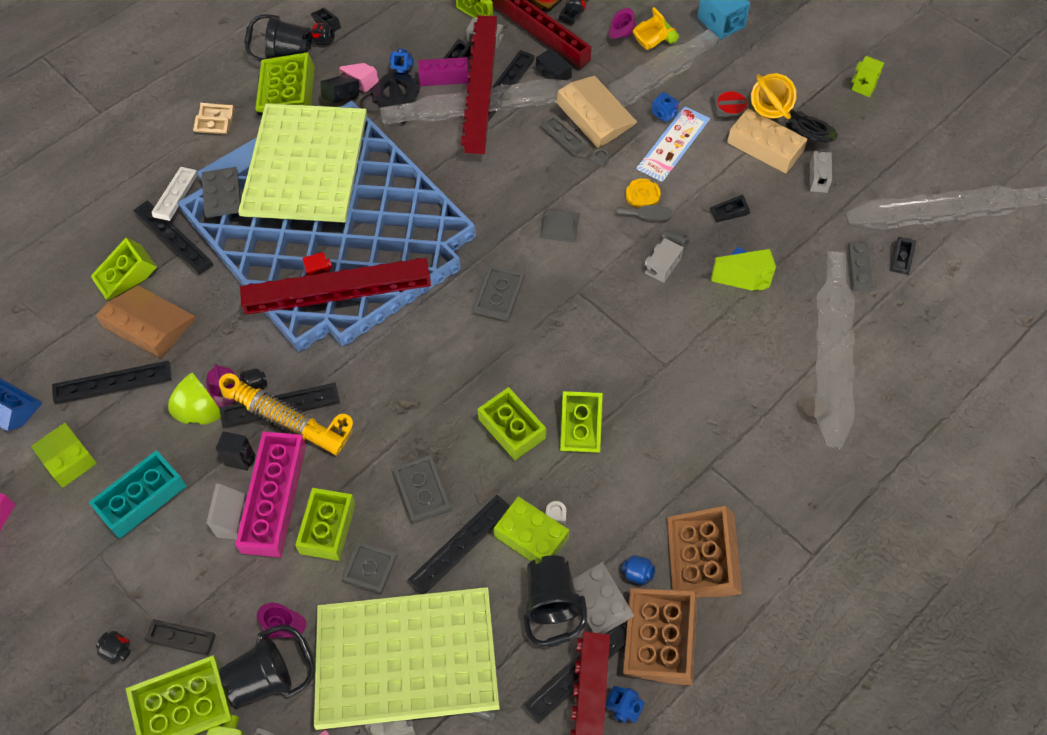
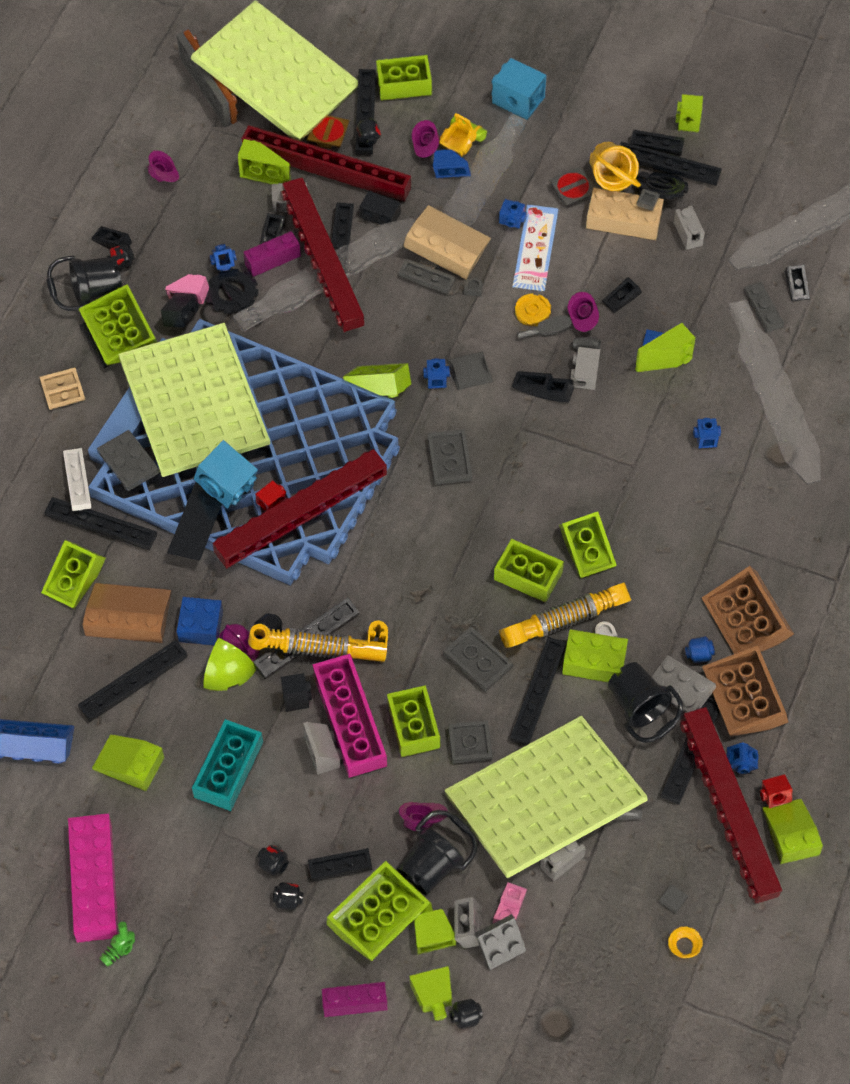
camera: 25 degrees left, 0 degrees up
(121, 605) = (273, 860): none -> black head
(198, 352) = (199, 621): none -> blue piece
(254, 258) = (195, 524): none -> black sticker
(284, 231) = (226, 475): none -> dark azure brick
(474, 203) = (381, 379): none -> lime slope
(522, 480) = (564, 615): none -> yellow piece
(526, 216) = (436, 373): none -> blue brick
(617, 262) = (544, 386): none -> black slope
(631, 51) = (450, 164): none -> blue slope
(685, 209) = (583, 311): none -> magenta piece
(748, 360) = (707, 433): none -> blue brick
(791, 133) = (648, 199): none -> dark grey tile
(826, 92) = (658, 142): none -> black plate
(833, 115) = (675, 164): none -> black plate

